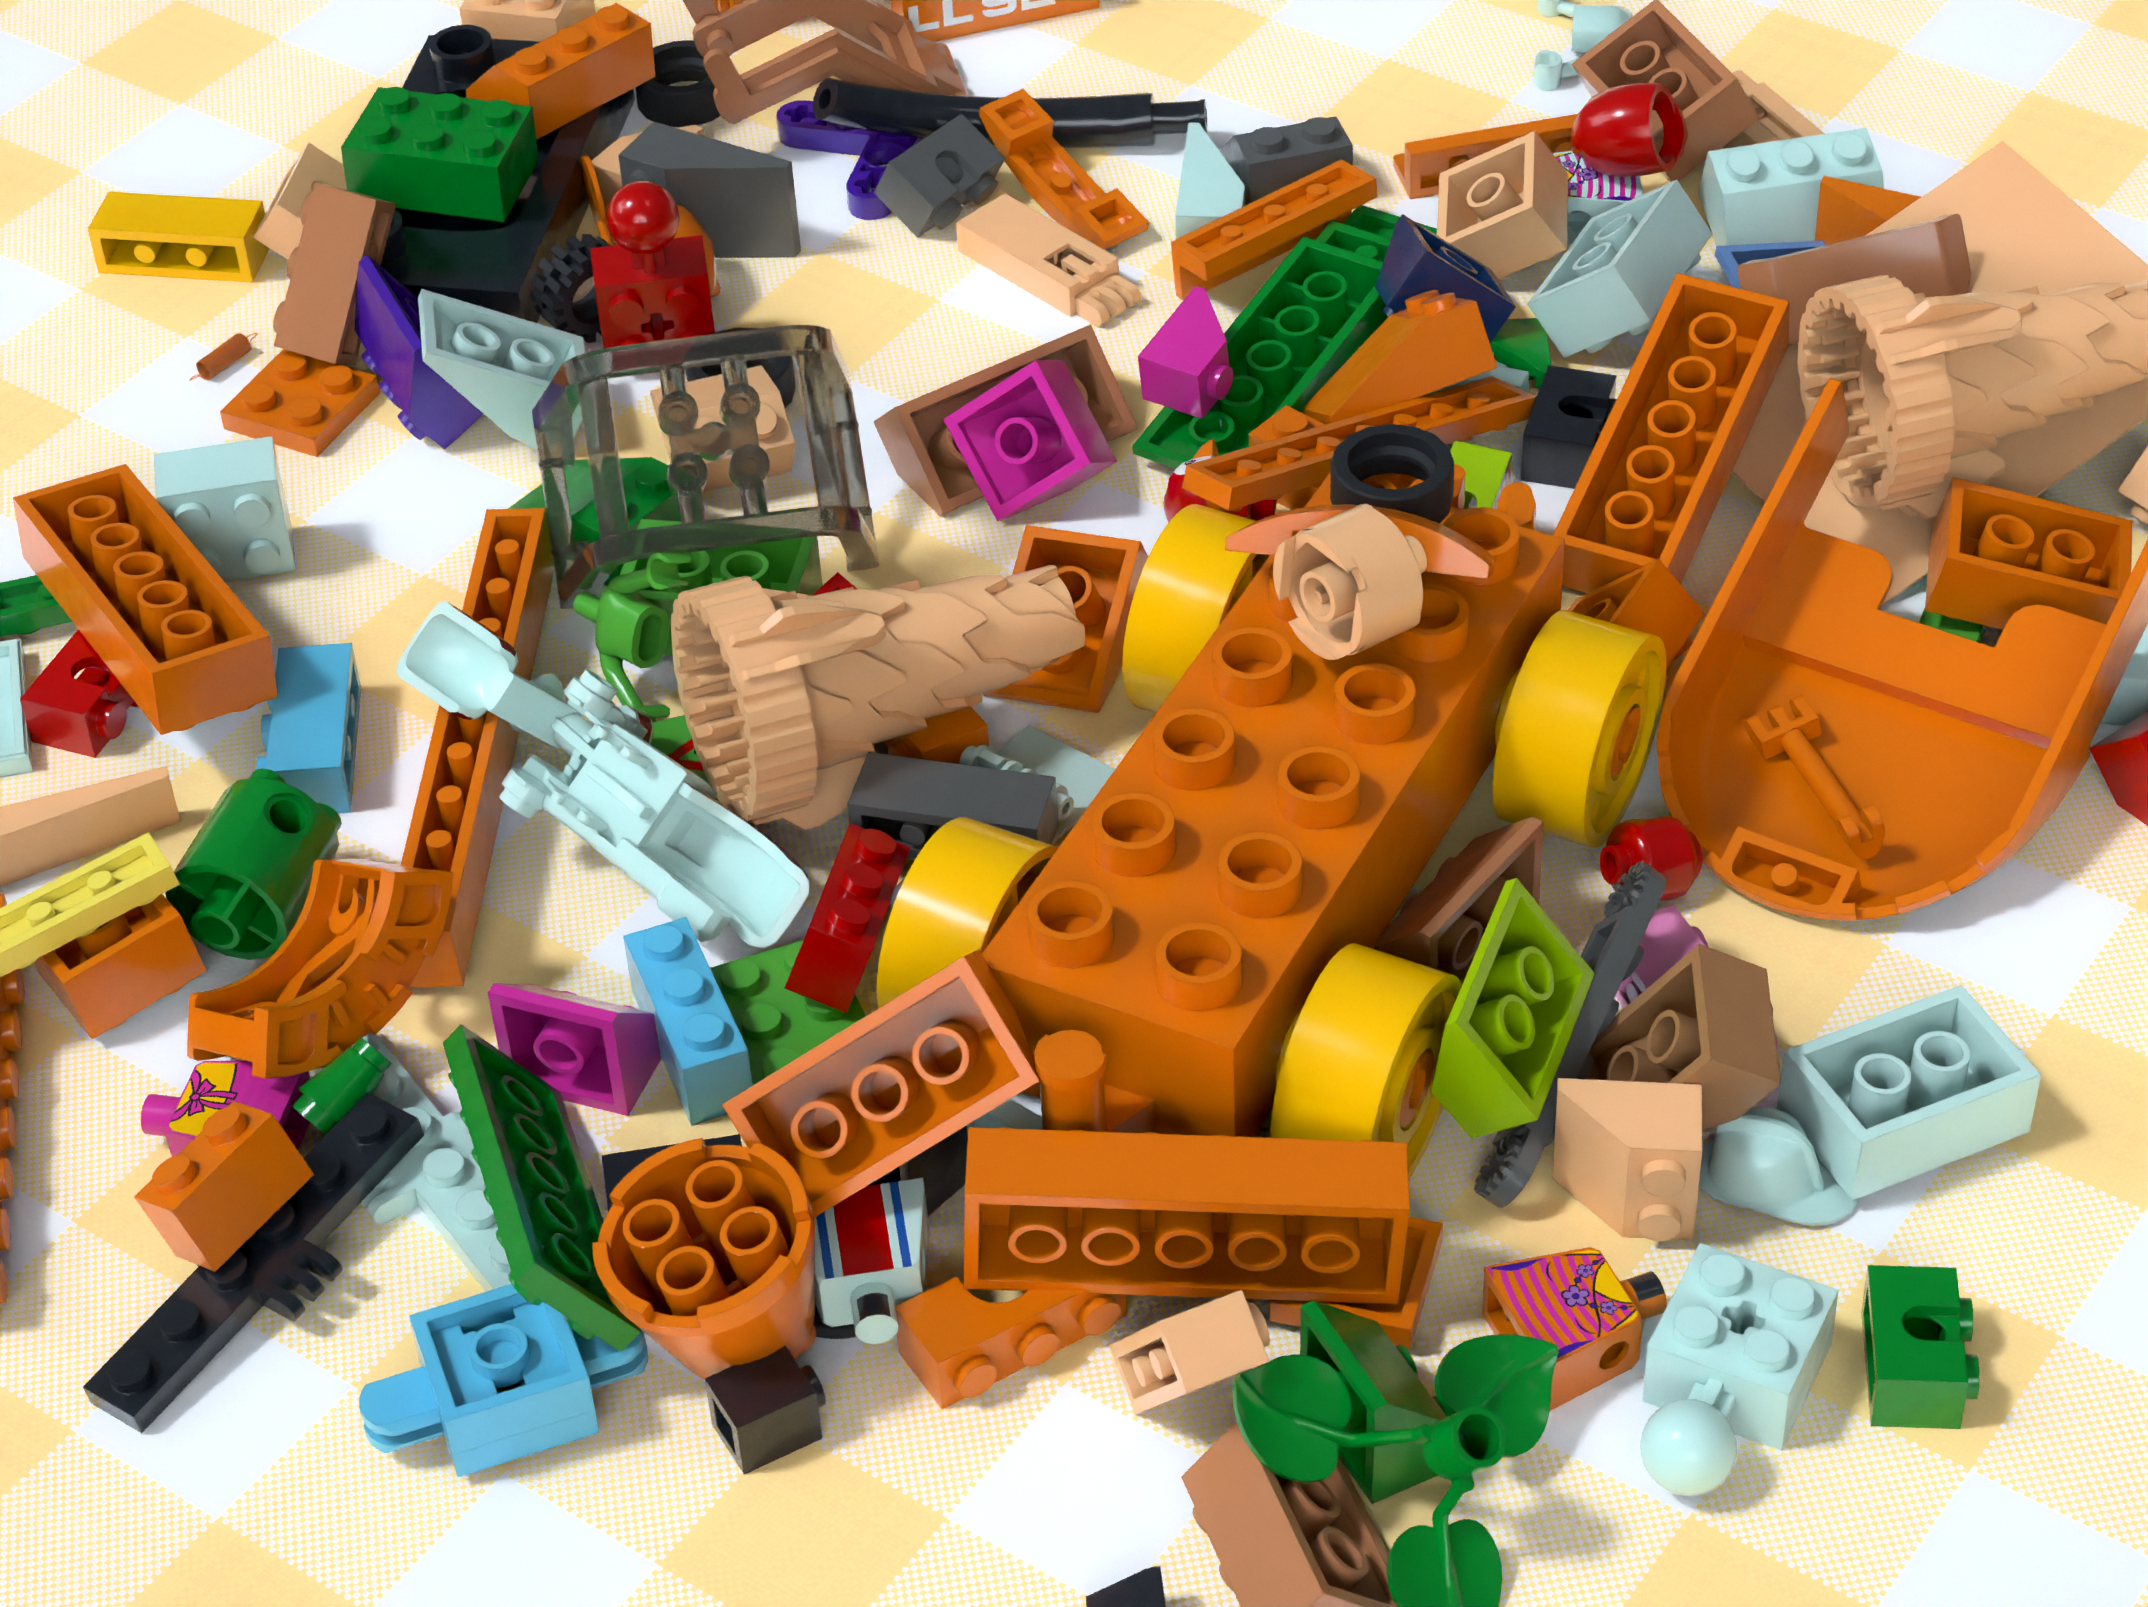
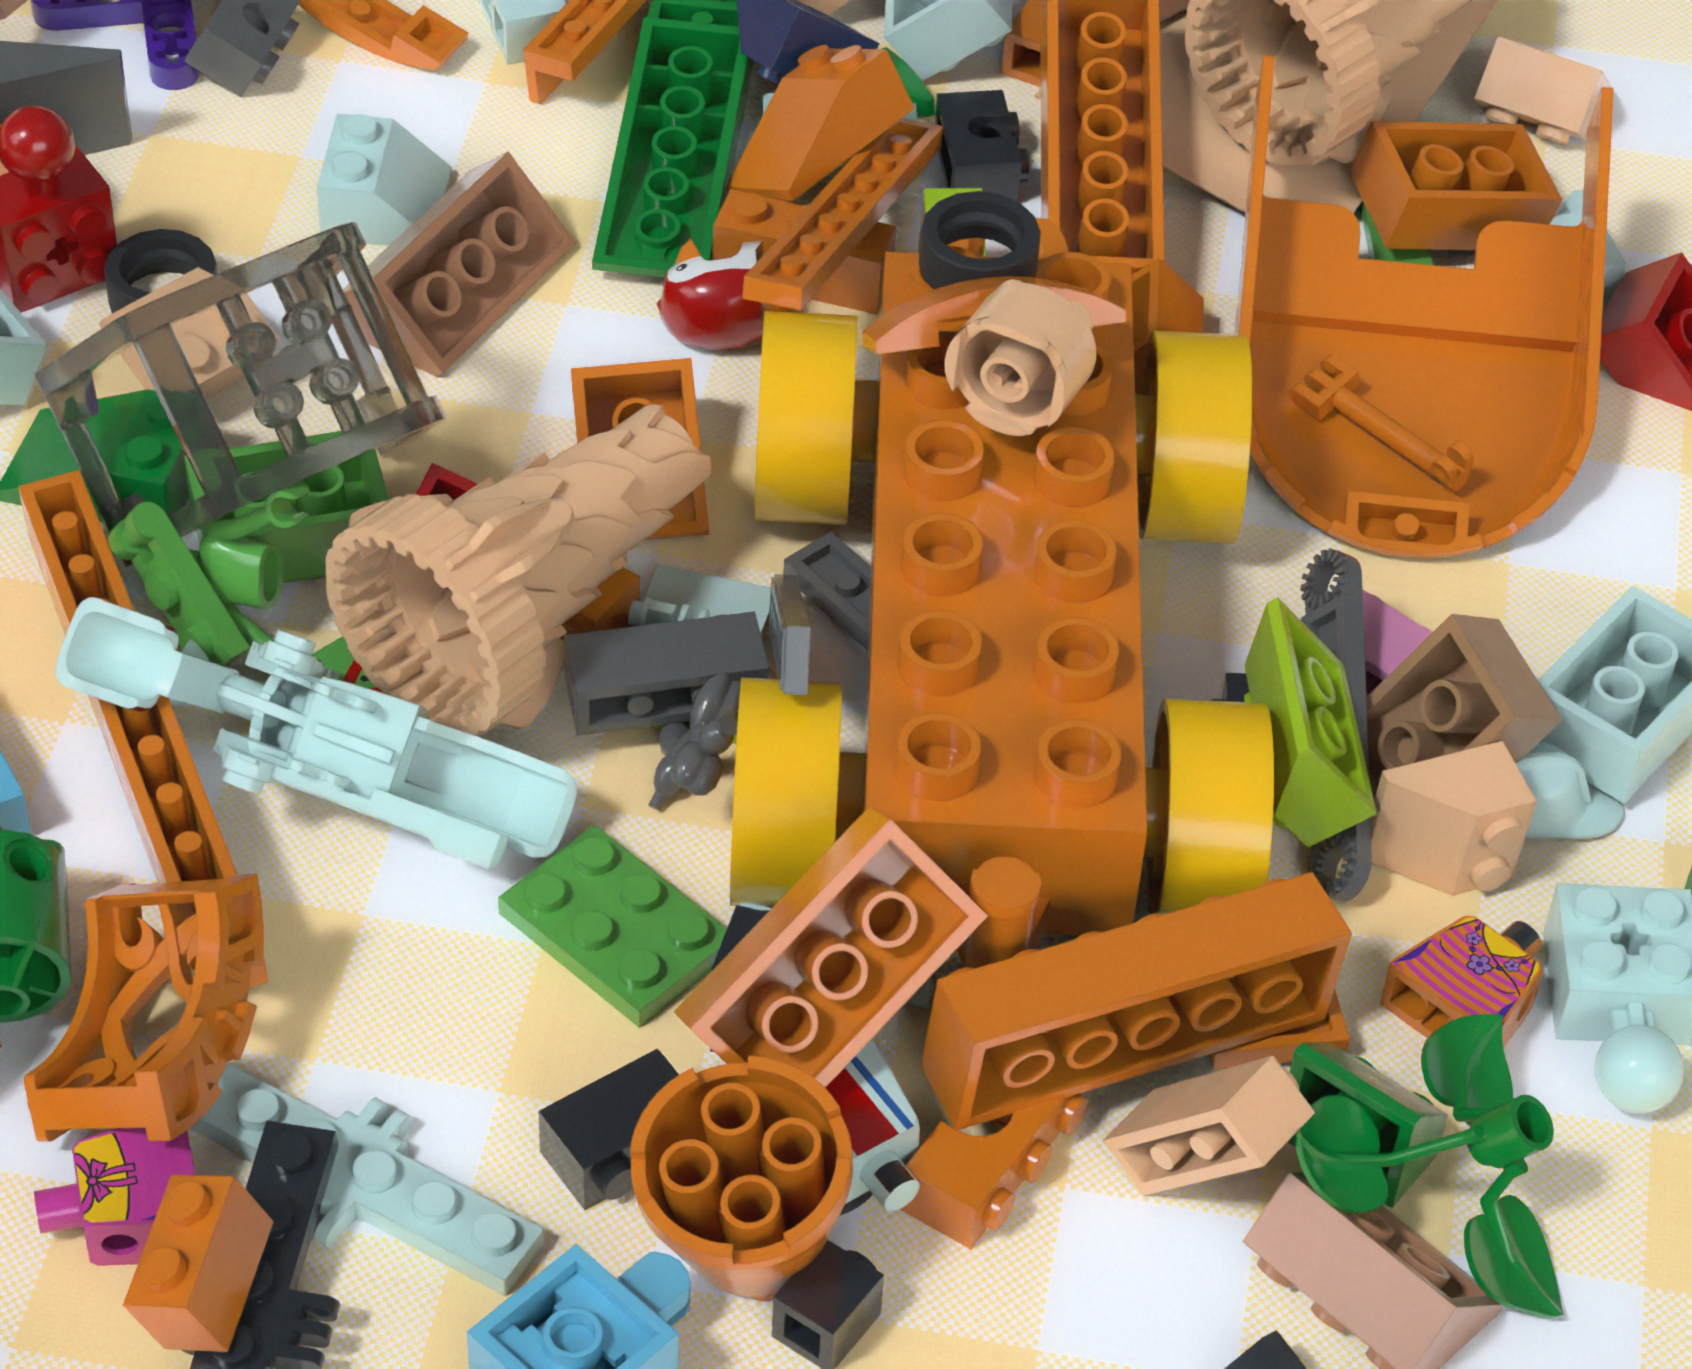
camera: 30 degrees left, 5 degrees up
(341, 1085) = (235, 1124): green cone -> none
(535, 1186) = (515, 1166): green plate -> none
(567, 616) = (177, 583): none -> bright green plate
(577, 1044) = (432, 1011): dark pink slope -> none
(691, 1018) = (525, 950): medium azure brick -> none
(848, 917) = (629, 804): red brick -> none
(974, 324) = (377, 178): none -> light aqua slope
(1029, 438) = (504, 281): dark pink slope -> none
(1035, 795) = (789, 634): none -> dark grey tile
(1046, 260) = (365, 81): light nougat hinge -> none
(1187, 359) = (615, 163): dark pink slope -> none
(1452, 913) = (1175, 622): nougat slope -> none
(1658, 842) = (1288, 540): red head -> none

